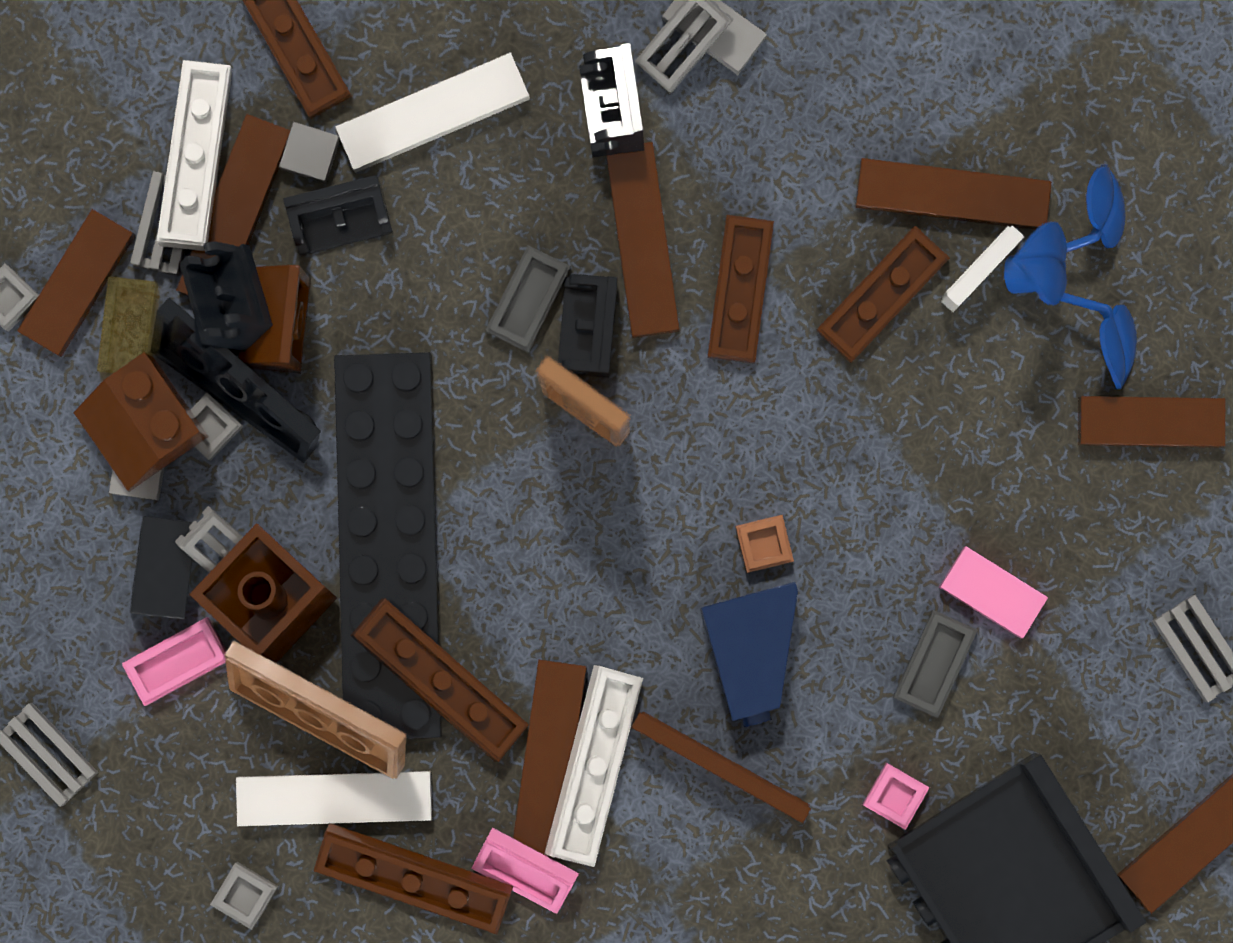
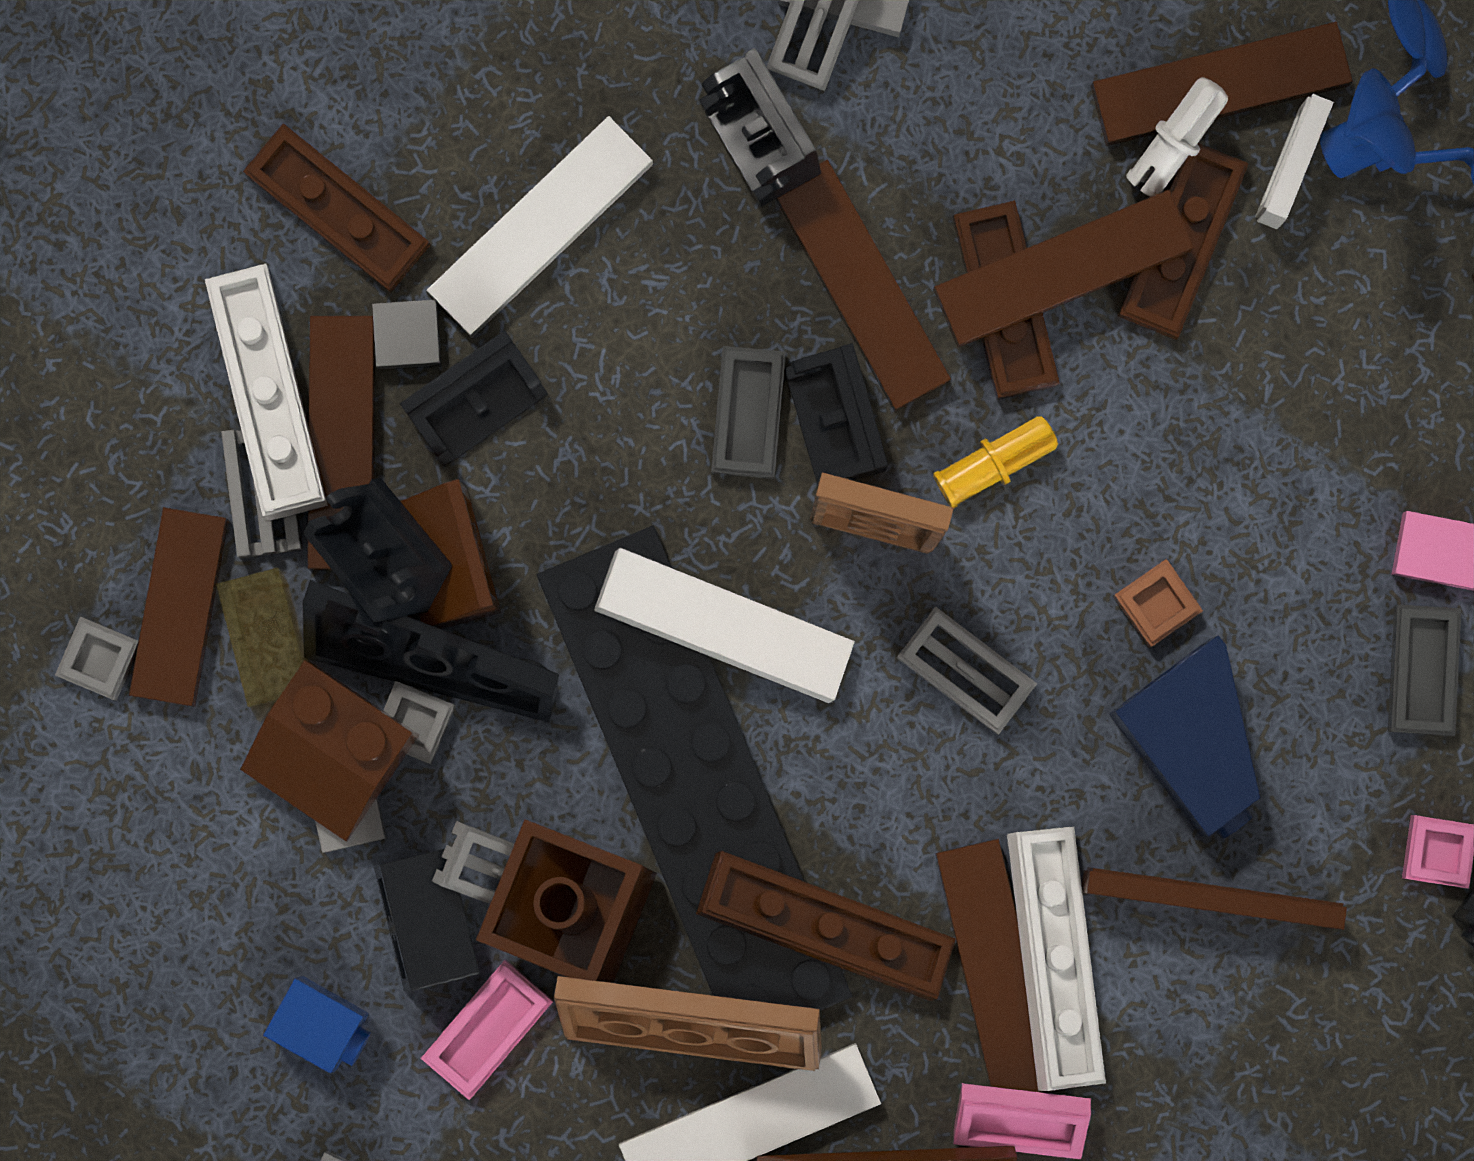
camera: 25 degrees left, 0 degrees up
(58, 612) = (319, 1026): none -> blue brick
(451, 441) = (724, 625): none -> white tile
(589, 504) = (1009, 703): none -> light grey tile
(689, 399) = (996, 461): none -> yellow axle
(788, 281) = (1063, 268): none -> reddish brown tile
(905, 220) = (1178, 136): none -> white axle

